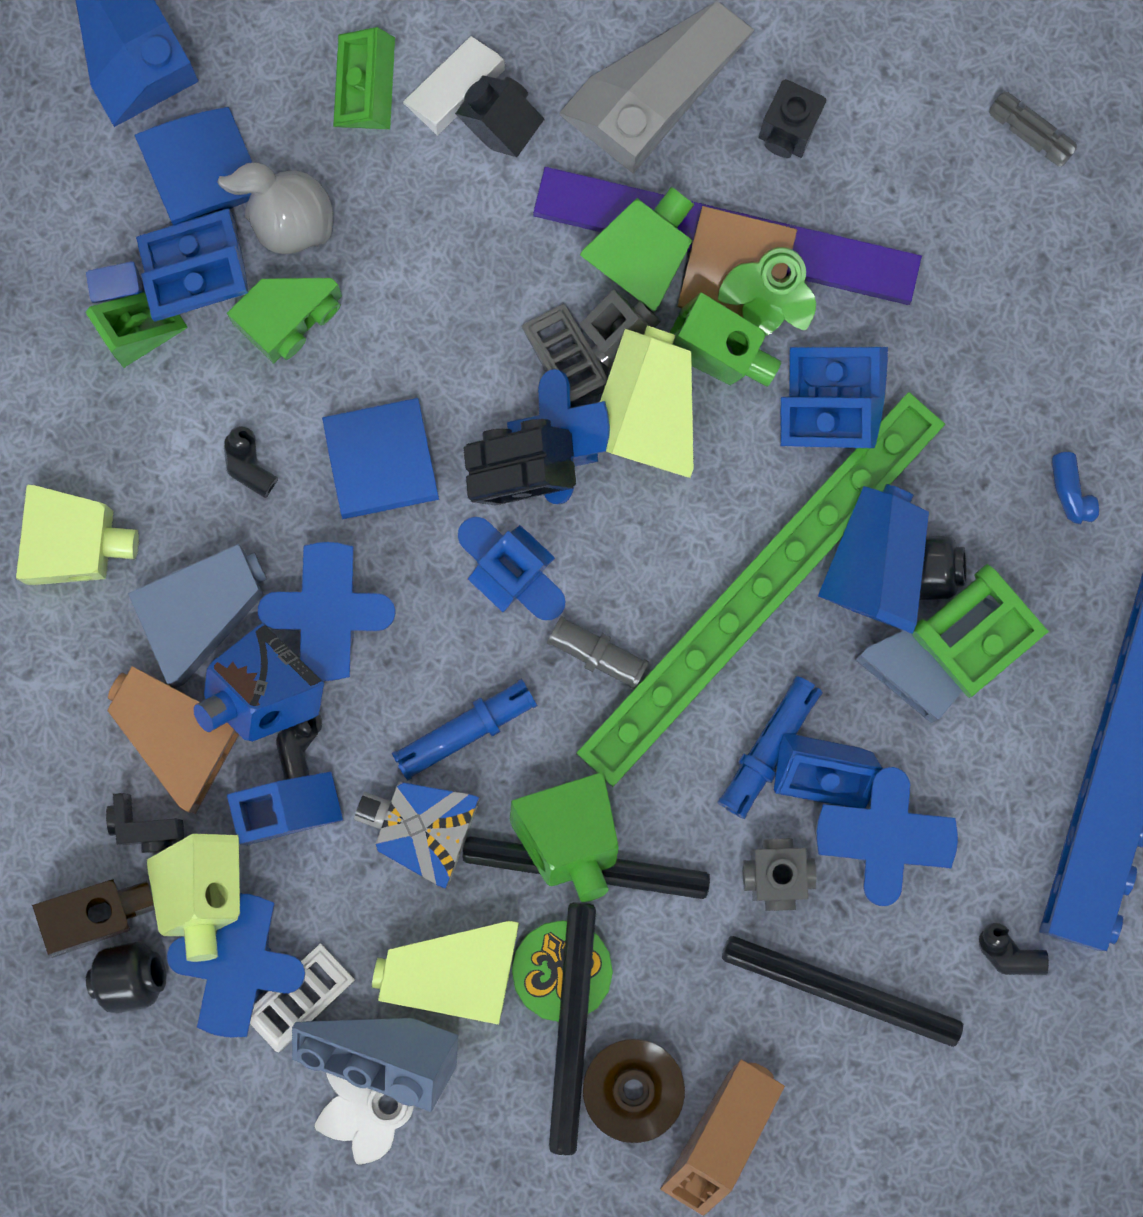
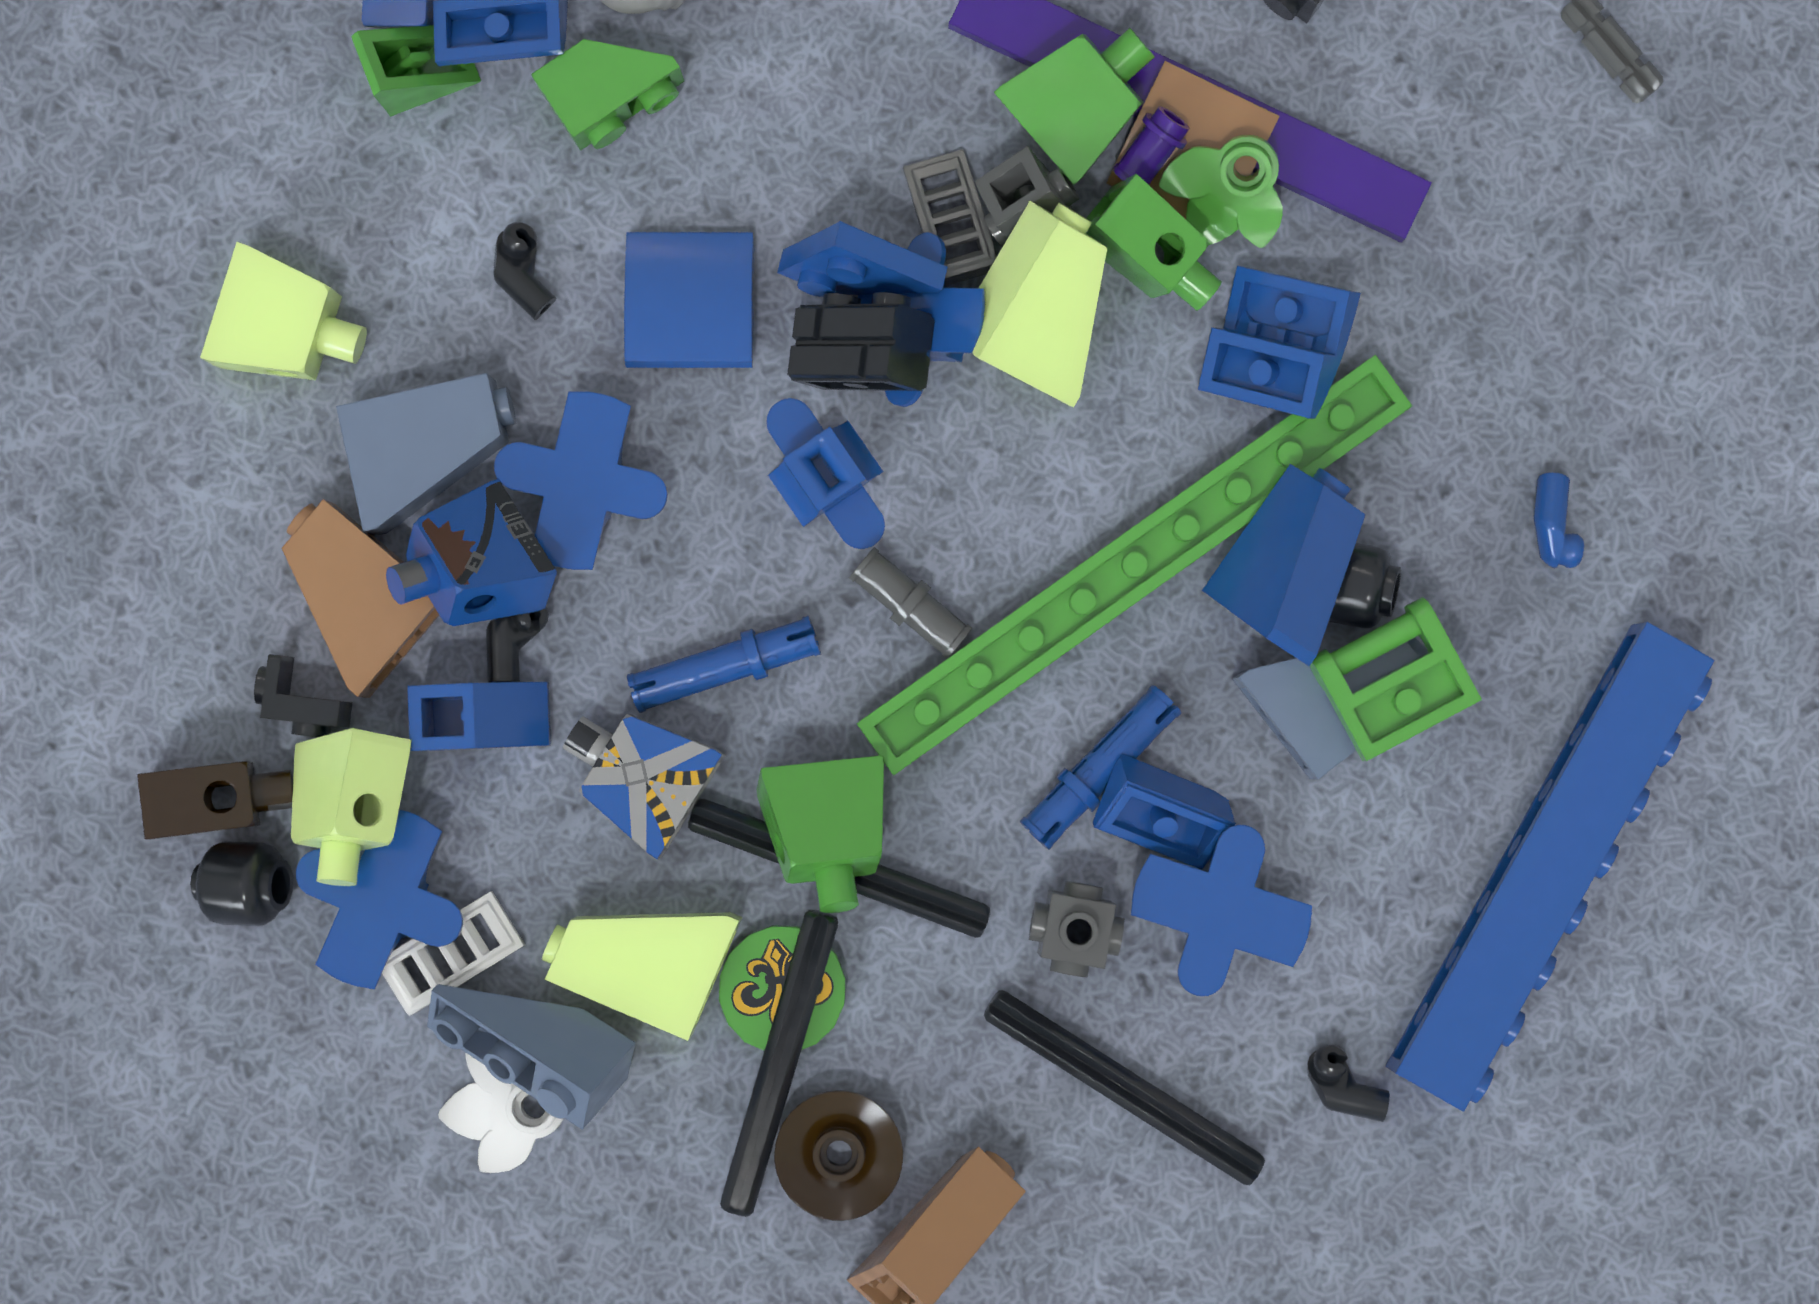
camera: 15 degrees right, 5 degrees up
(504, 403) = (858, 263): none -> blue wing
(707, 270) = (1153, 145): none -> dark purple pin

